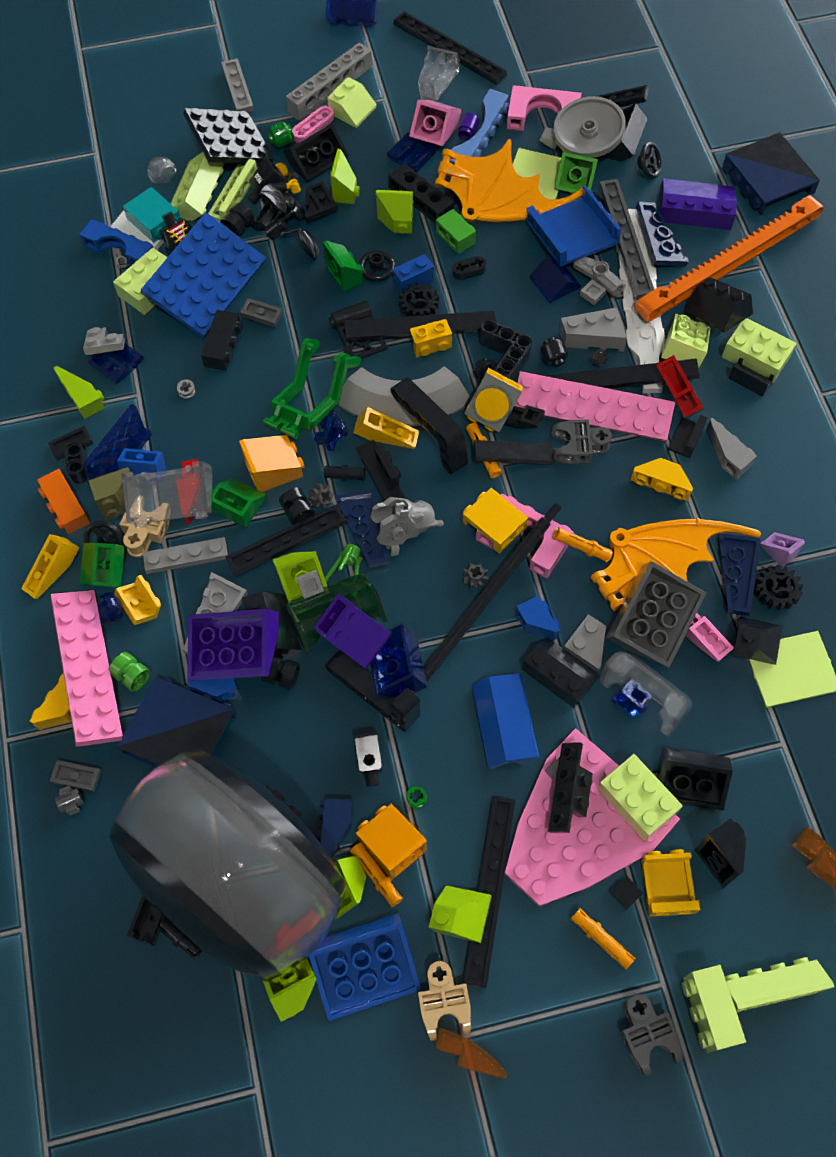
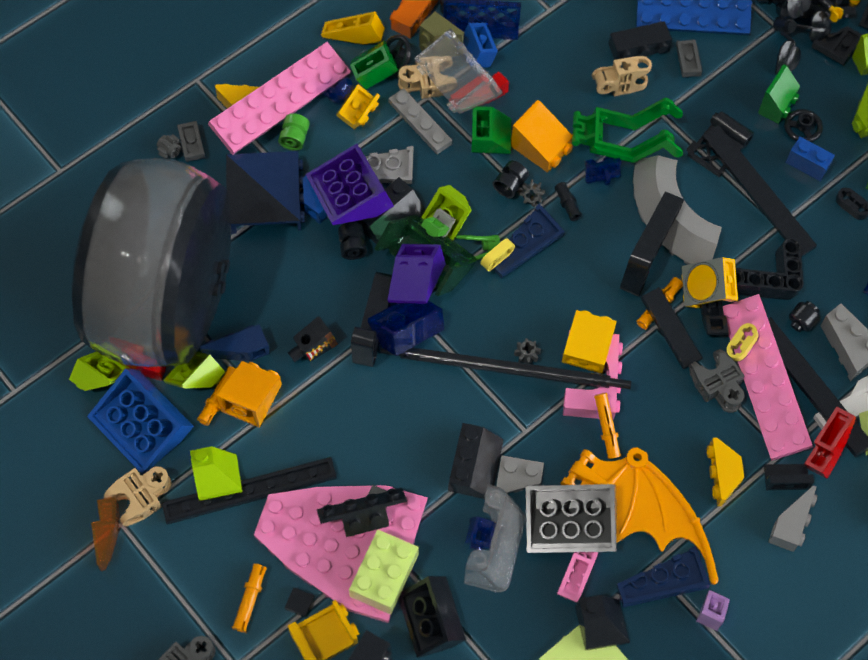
camera: 60 degrees right, 0 degrees up
(180, 388) = (576, 36): light grey bush -> none
(251, 367) = (615, 76): none -> tan piece
(285, 540) = (476, 187): black plate -> none
(314, 590) = (434, 227): none -> bright green plate
(370, 552) = (497, 254): none -> light yellow beam
(381, 469) = (584, 232): black bracket -> none
(384, 429) = (629, 212): yellow slope -> none
(402, 524) = (543, 265): light grey helmet -> none
(412, 791) = (300, 404): green bush -> none
(419, 300) = (785, 177): black gear -> none
(431, 338) = (749, 204): yellow bracket -> none
(481, 367) = (746, 262): black gear -> none
(505, 720) = (404, 436): blue slope -> none
(536, 619) = (514, 419): blue slope -> none
(562, 403) = (739, 338): none -> light yellow beam
(599, 358) = (825, 360): clear smoke plate -> none
(784, 596) = (677, 625): black gear -> none

